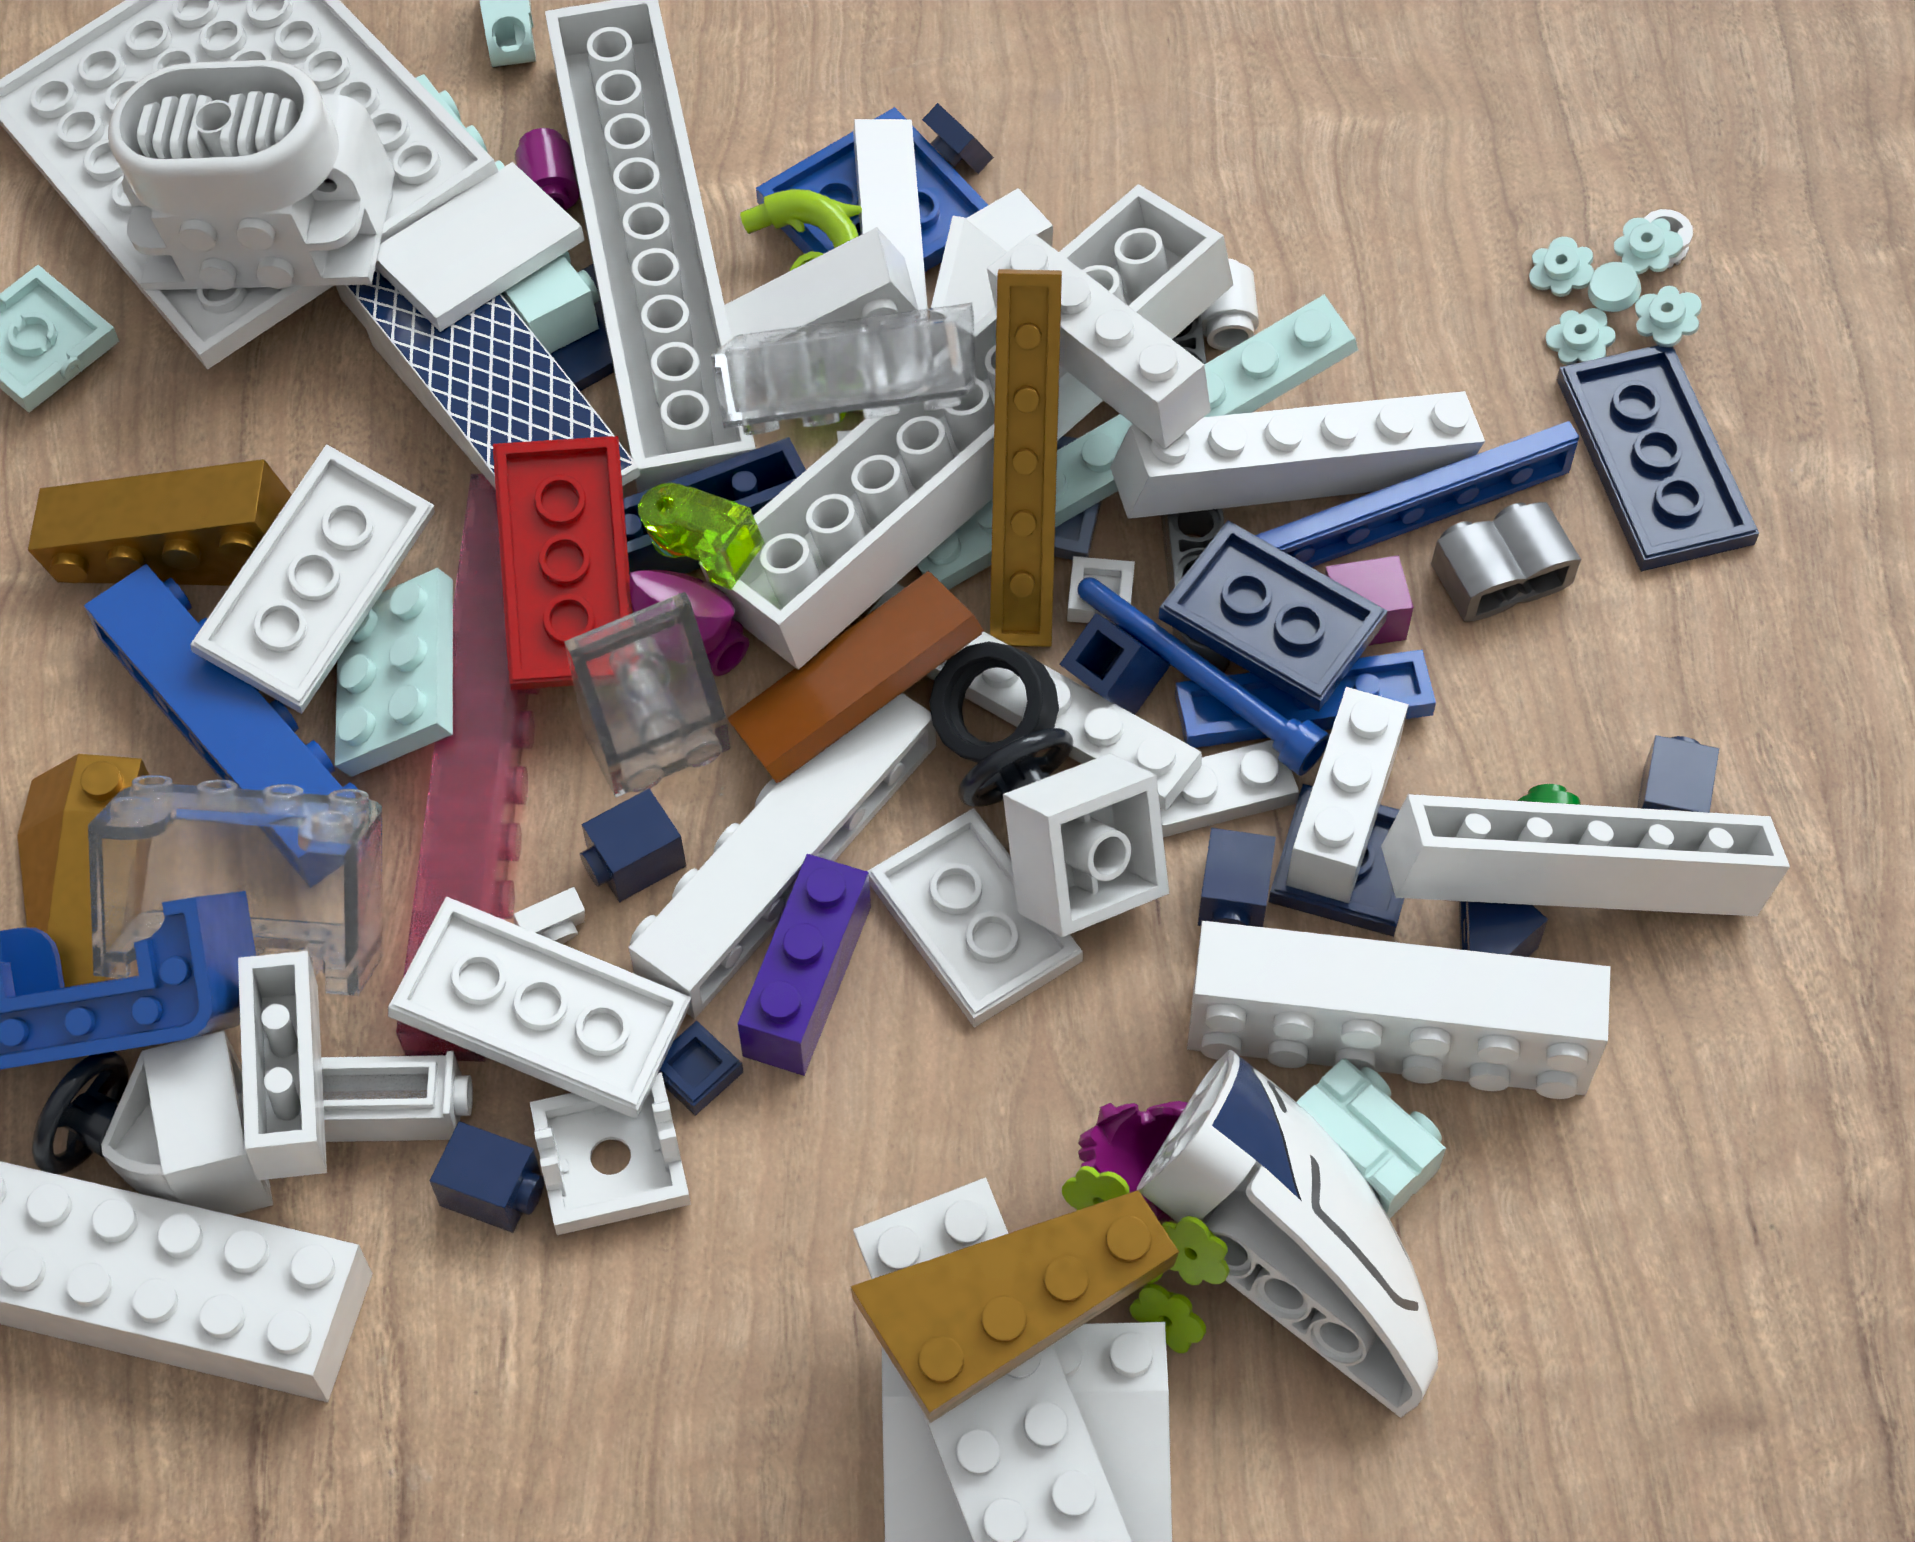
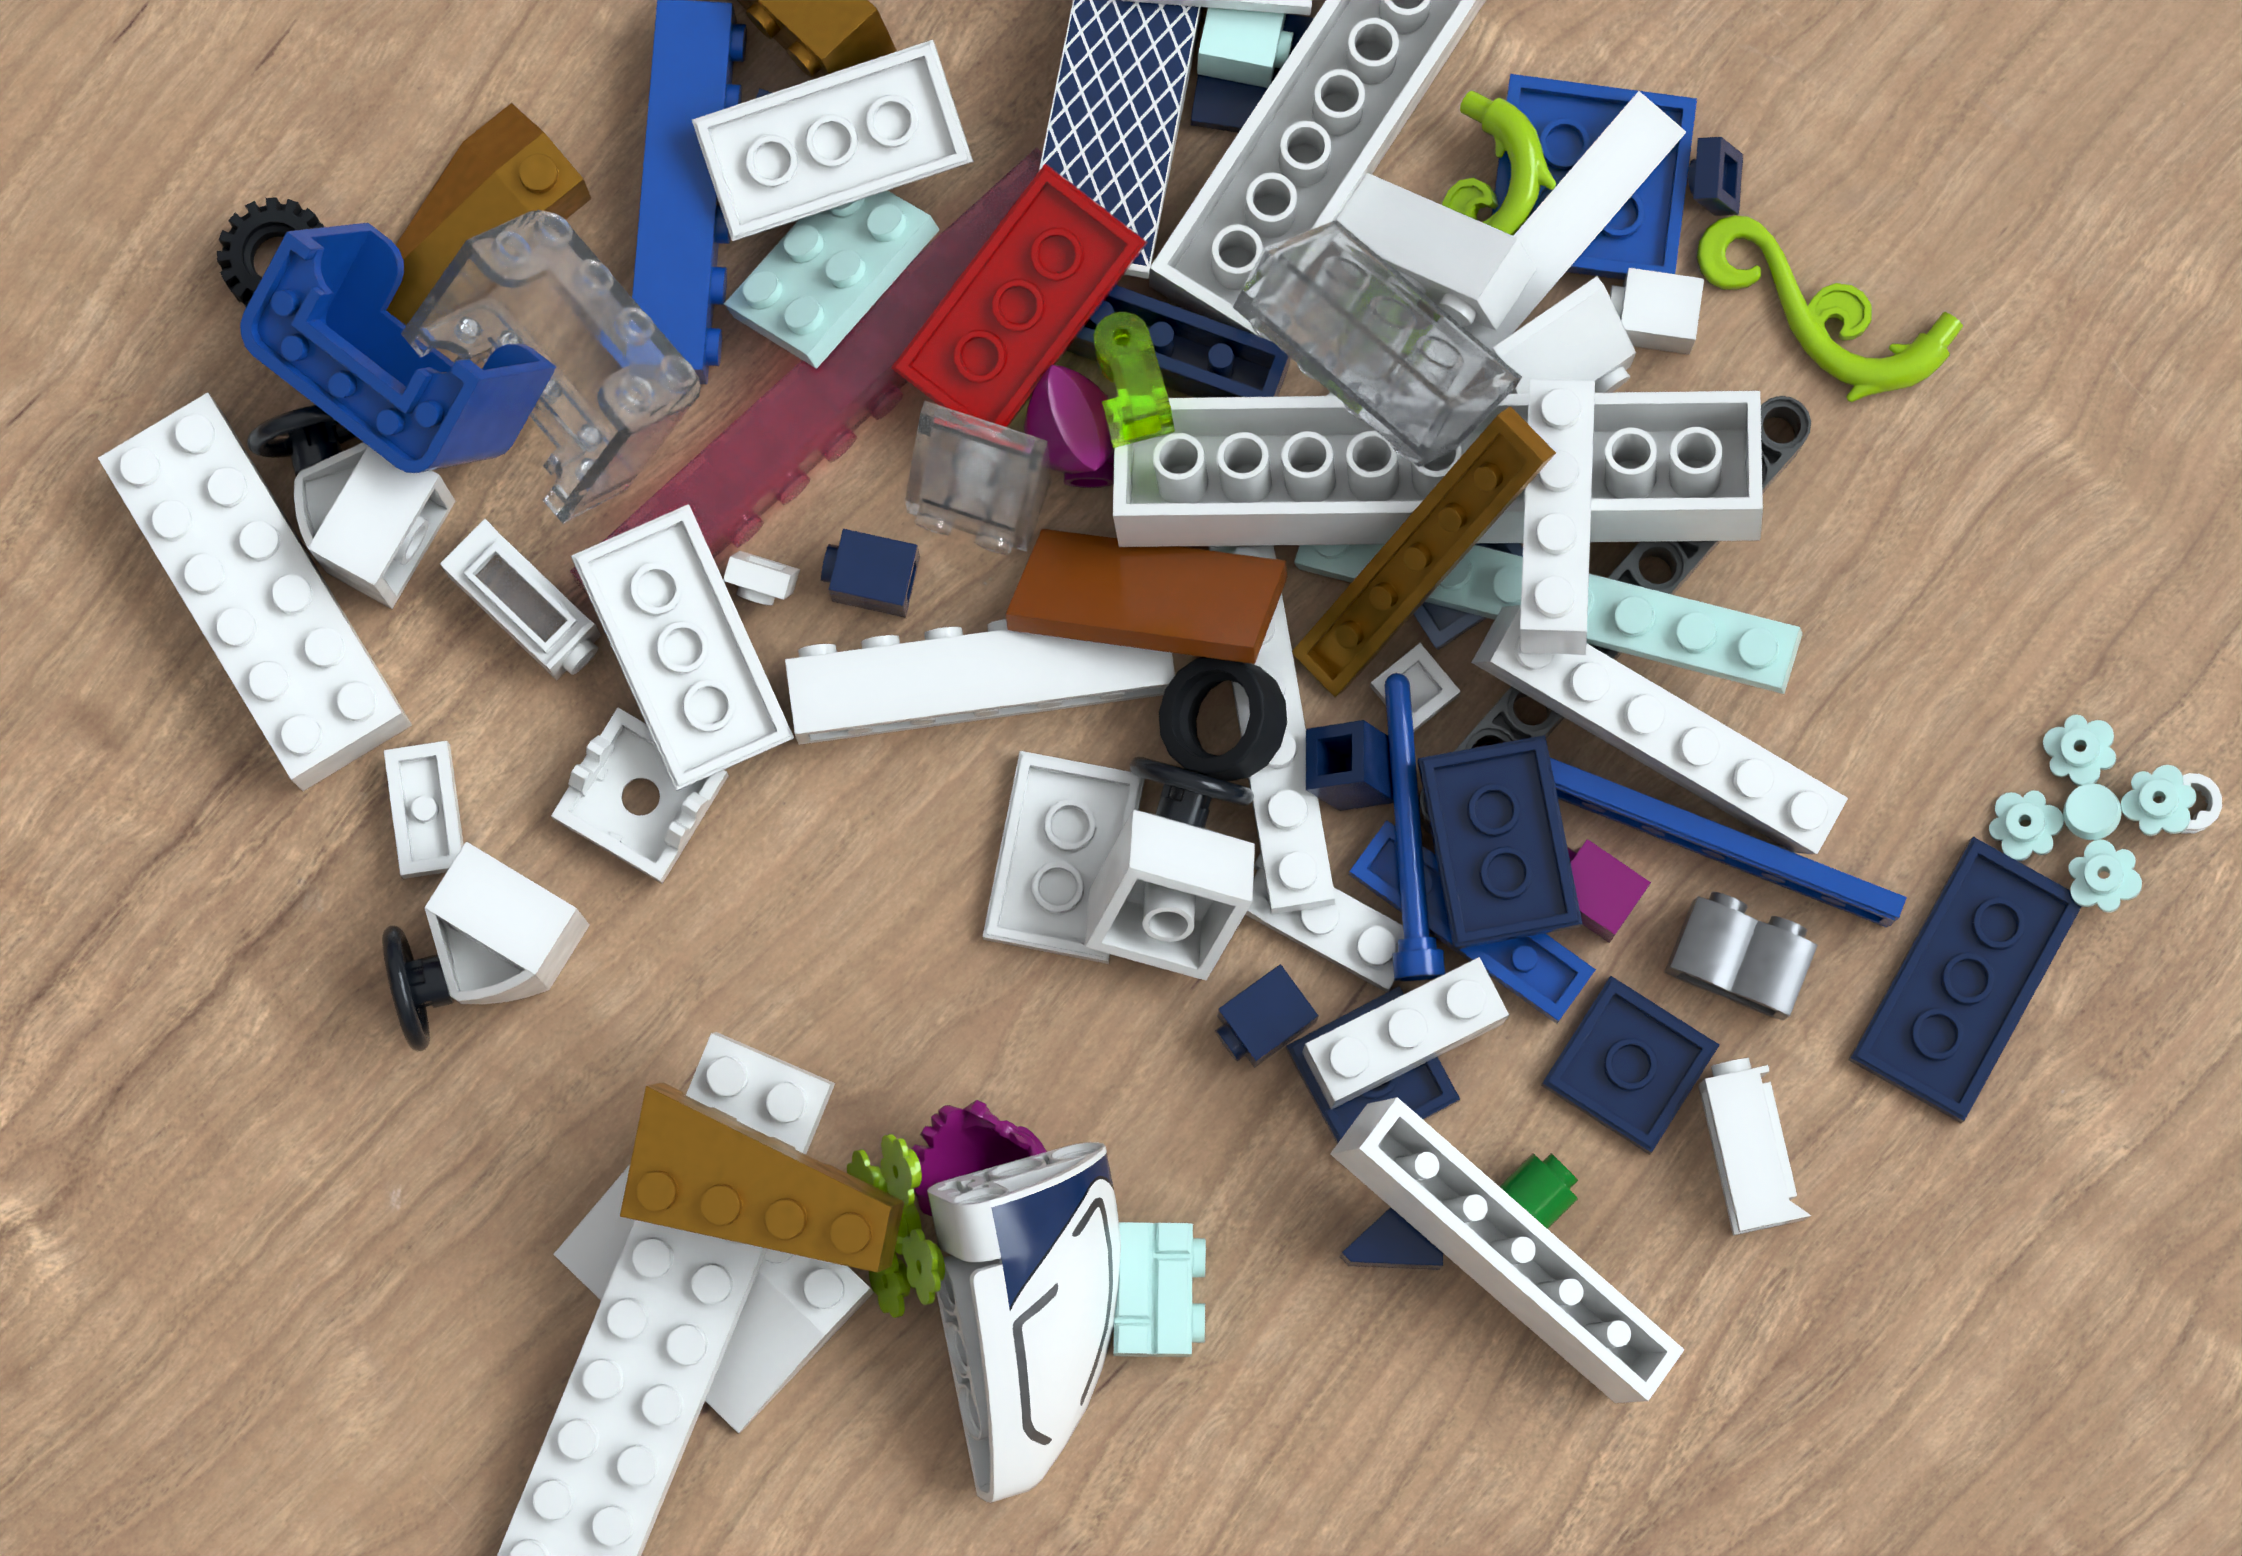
camera: 45 degrees right, 20 degrees up
(281, 1066) = (455, 538): white brick -> none
(446, 1316) = (424, 808): none -> white plate
(487, 1177) = (540, 736): dark blue brick -> none
(597, 1350) = (493, 942): none -> white piece
(698, 1068) = (762, 787): dark blue tile -> none
(805, 964) = (902, 784): dark purple brick -> none
(1116, 149) = (1807, 322): none -> lime plant
(1235, 313) = (1783, 533): white brick -> none
(1399, 1009) = (1261, 1223): white brick -> none
(1510, 697) = (1630, 1065): none -> dark blue tile
(1650, 670) = (1749, 1147): none -> white window
(1678, 775) = (1662, 1255): brick -> none

